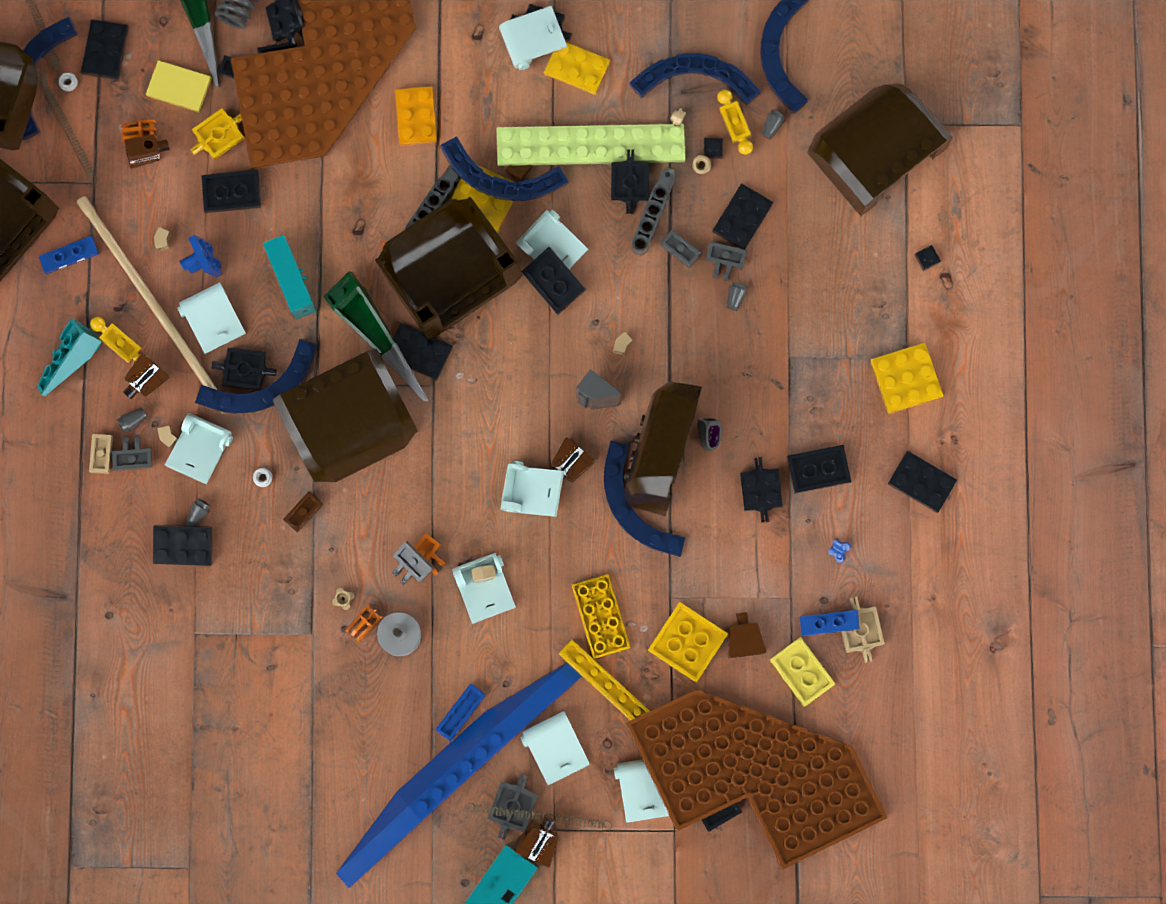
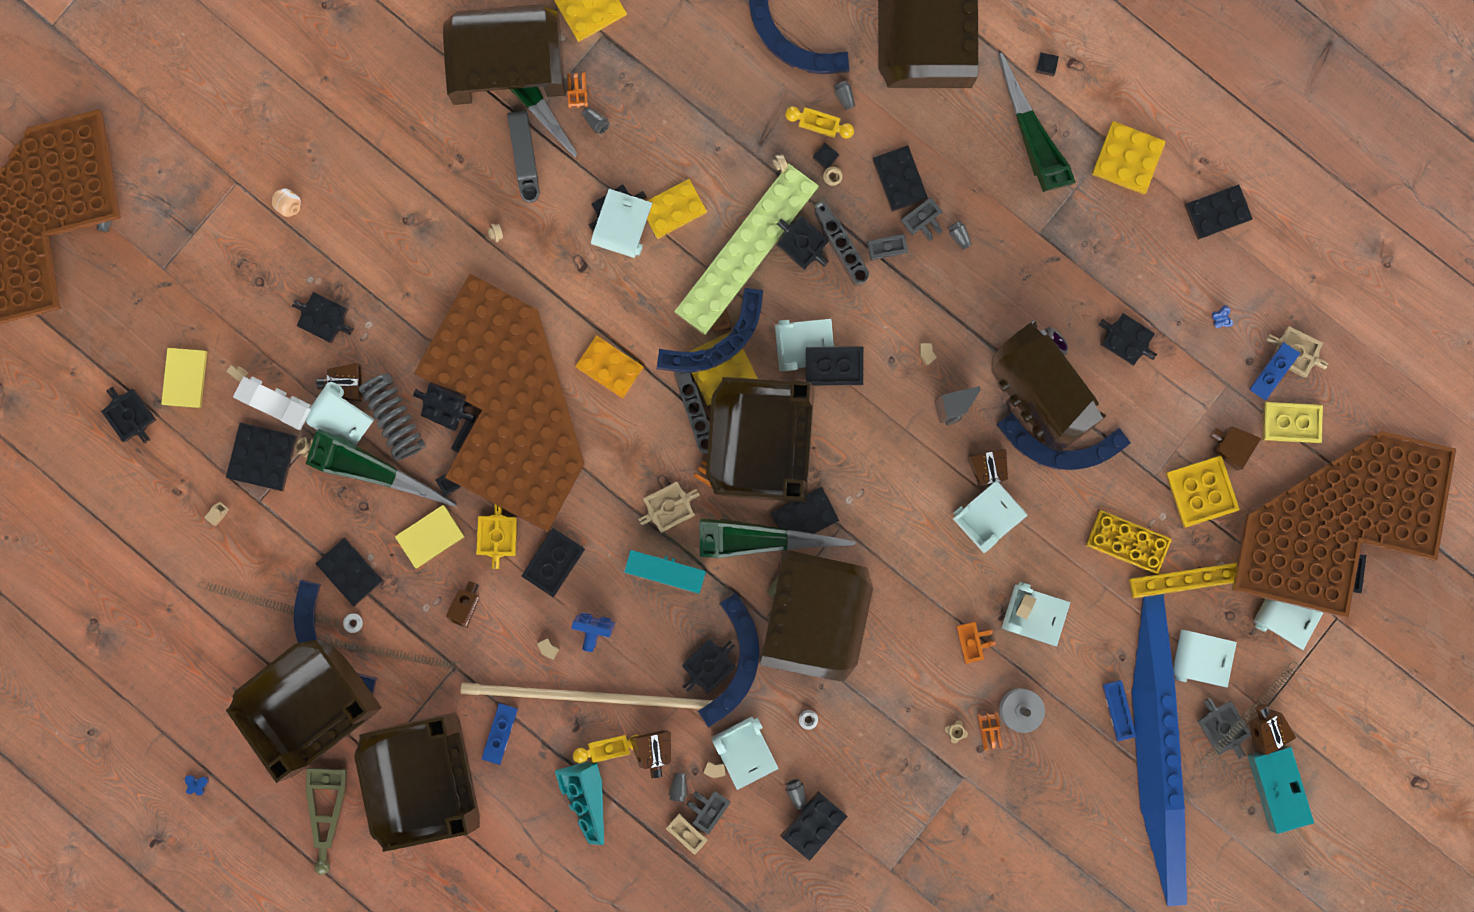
camera: 55 degrees left, 5 degrees up
(137, 129) = (443, 596): orange arm -> none
(210, 315) = (643, 659): light aqua door -> none
(303, 512) = (862, 709): reddish brown plate -> none
(343, 243) = (669, 507): none -> tan plate
(413, 562) = (975, 654): hinge -> none
(695, 64) = (751, 110): dark blue plate -> none
(818, 469) = (1147, 282): black plate -> none
(851, 311) = (1044, 156): none -> dark green plate

